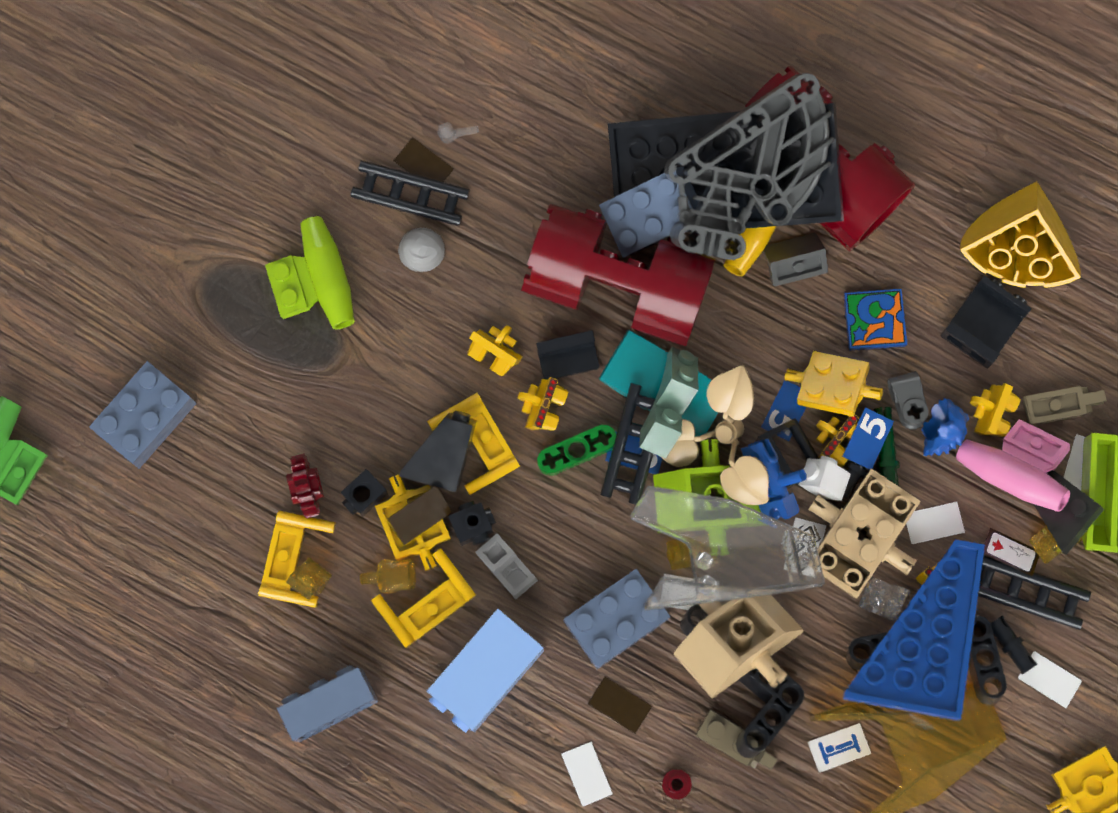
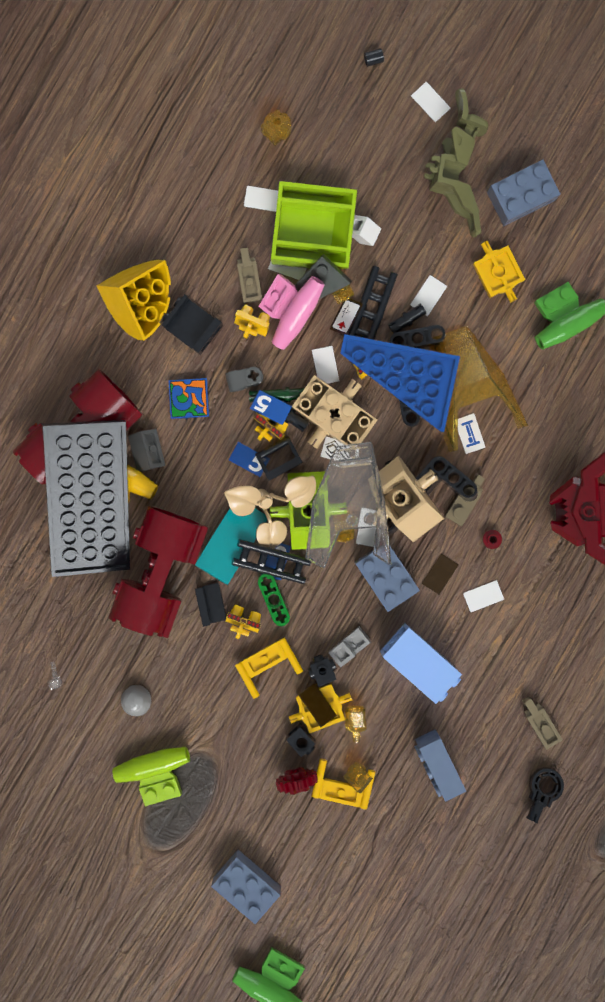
camera: 85 degrees left, 10 degrees up
(420, 207) = (86, 714): black bar -> none
(422, 162) = (76, 698): dark brown sticker -> none
(430, 609) = (377, 696): yellow plate -> none
(443, 454) = (276, 688): black slope -> none
(483, 343) = (202, 651): yellow hips -> none
(645, 213) = (114, 547): sand blue brick -> none
(674, 396) = (241, 536): sand green arch -> none
(712, 219) = (125, 511): dark grey beam -> none
(780, 502) = (312, 467): blue piece -> none
(825, 478) = (297, 437): white brick -> none
(833, 383) = (233, 428): yellow plate -> none
(883, 599) = (376, 401): clear piece -> none
(944, 428) = (264, 356): blue hair -> none

